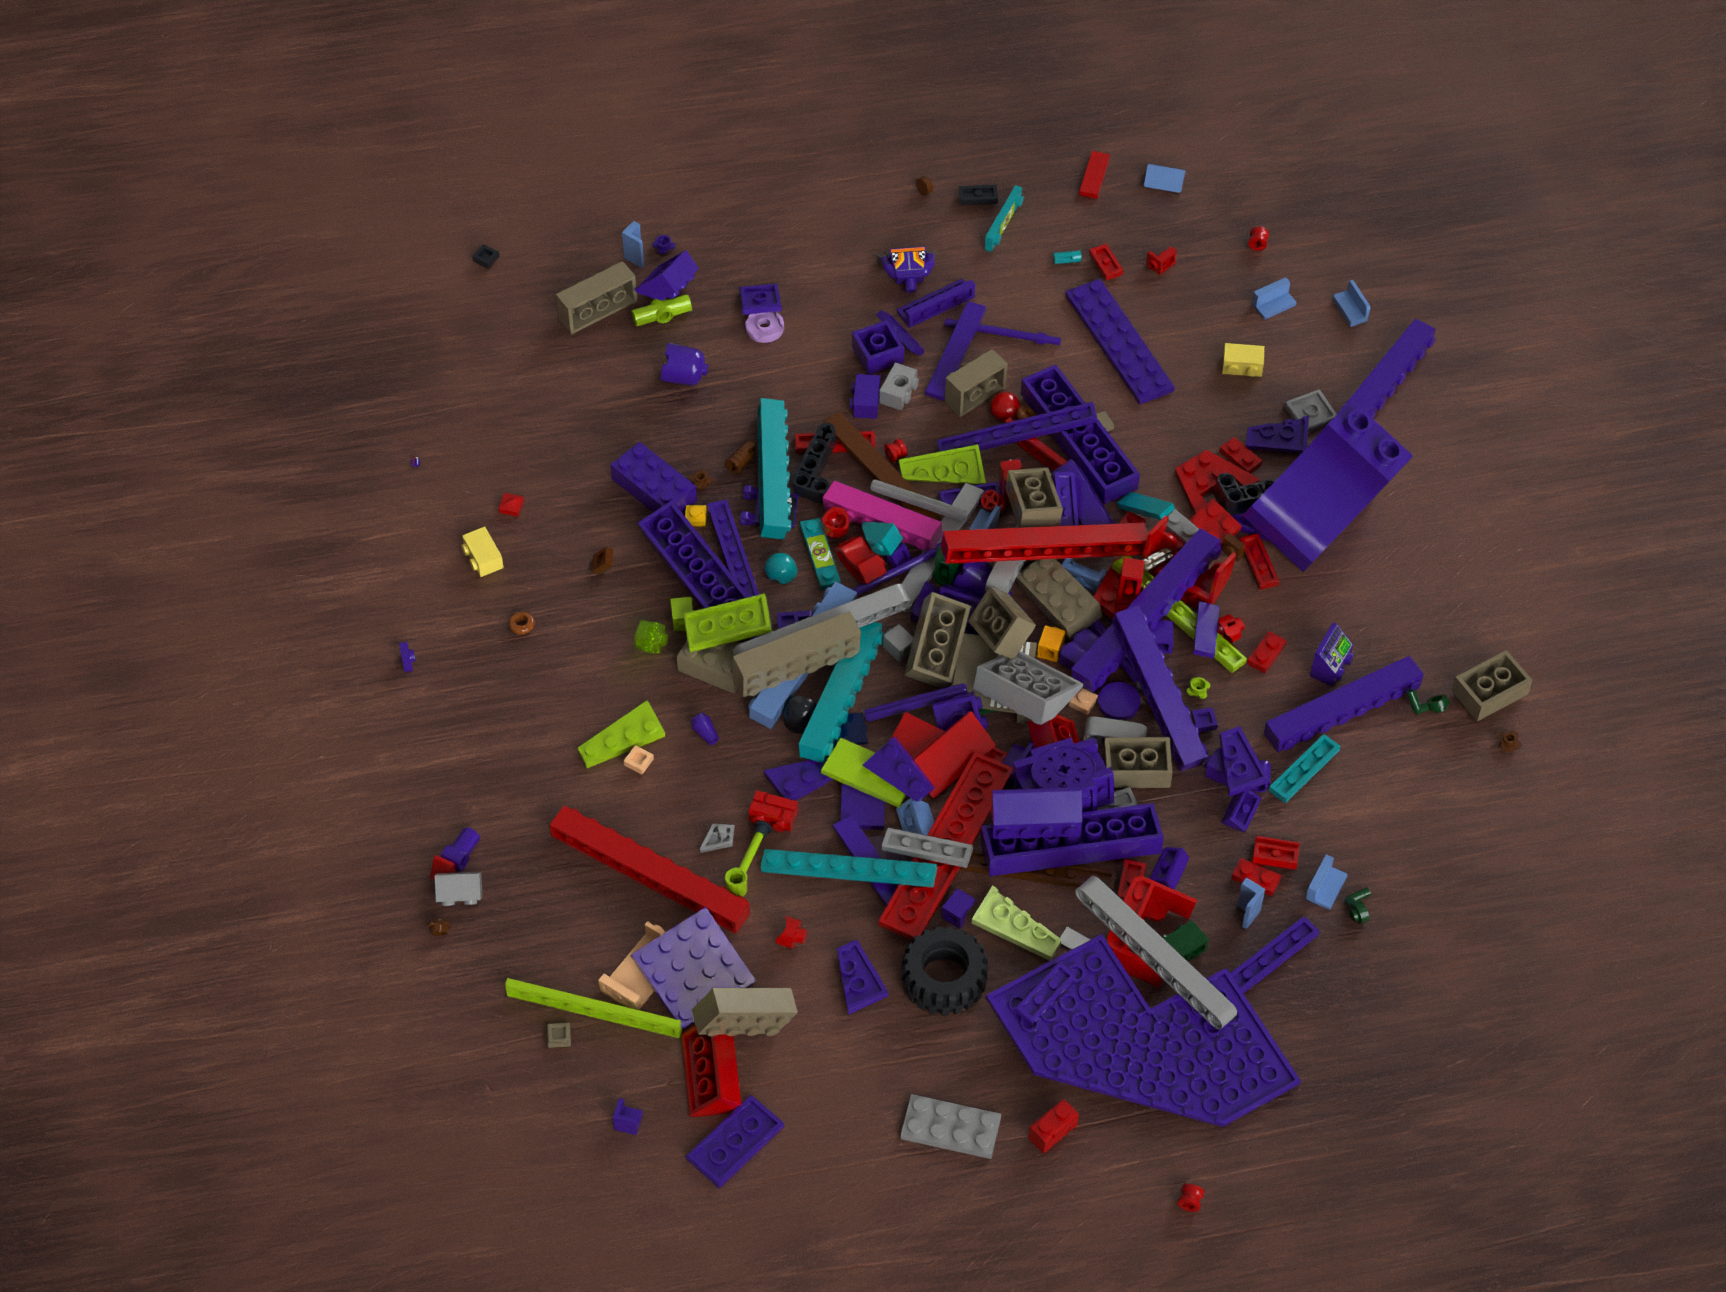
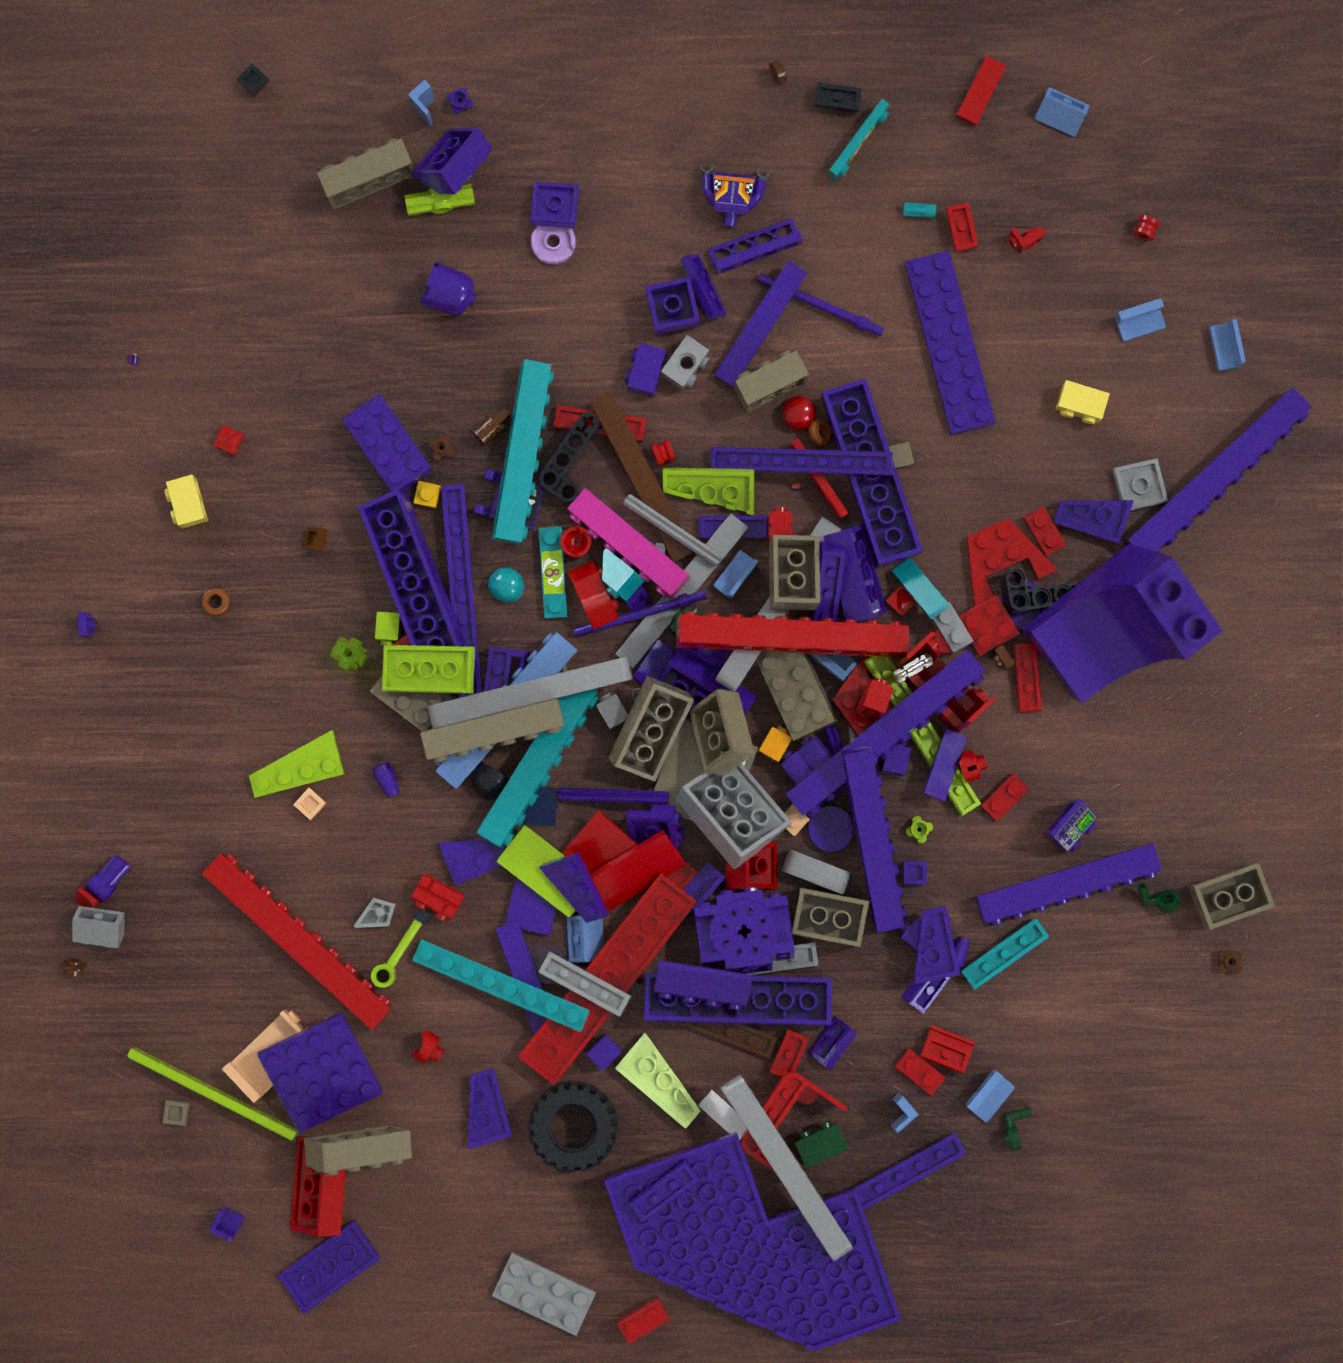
camera: 10 degrees right, 30 degrees up
(988, 500) = (749, 546): red wheel -> none

